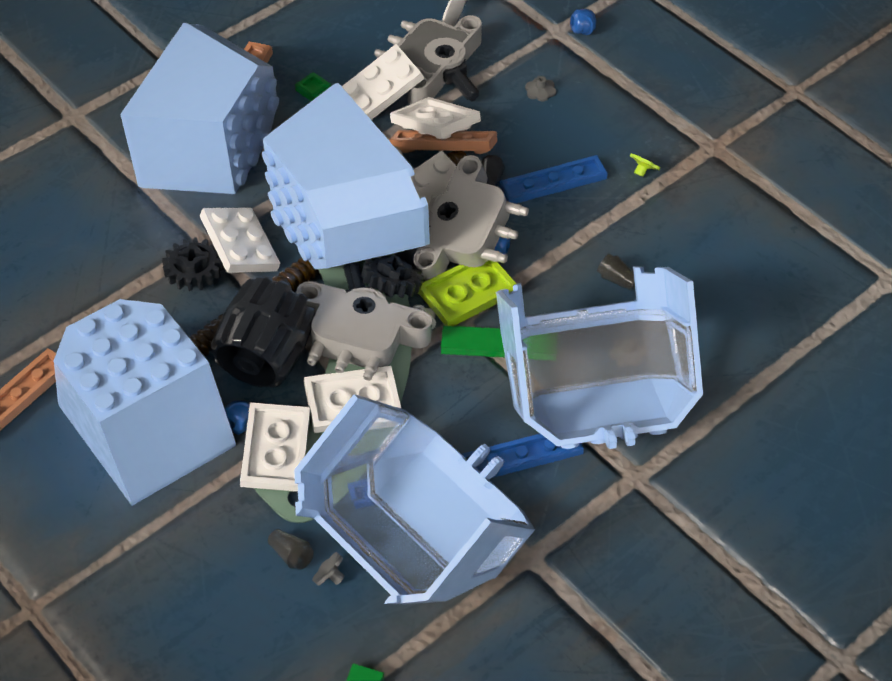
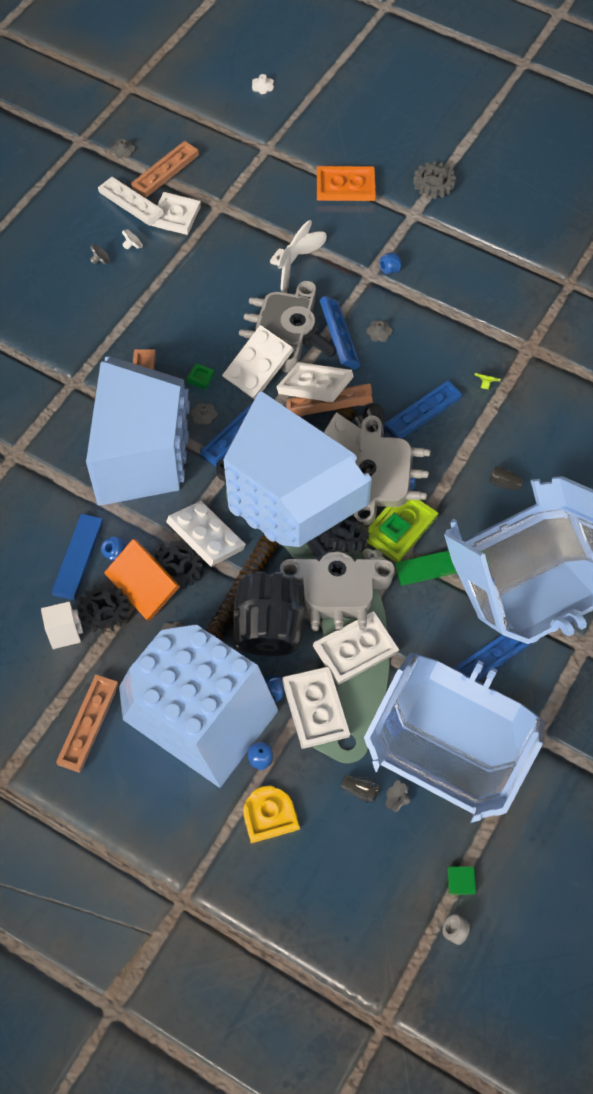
camera: 20 degrees left, 10 degrees up
(33, 286) = (62, 625): none -> white brick
(89, 230) = (77, 557): none -> blue tile
(90, 285) = (104, 610): none -> black gear
(132, 230) = (113, 547): none -> blue piece
(145, 265) = (142, 579): none -> orange tile
(172, 547) = (269, 814): none -> yellow tile
(190, 481) = (260, 755): none -> blue piece
(458, 287) = (395, 528): none -> green tile
(490, 78) = (340, 333): none -> blue tile

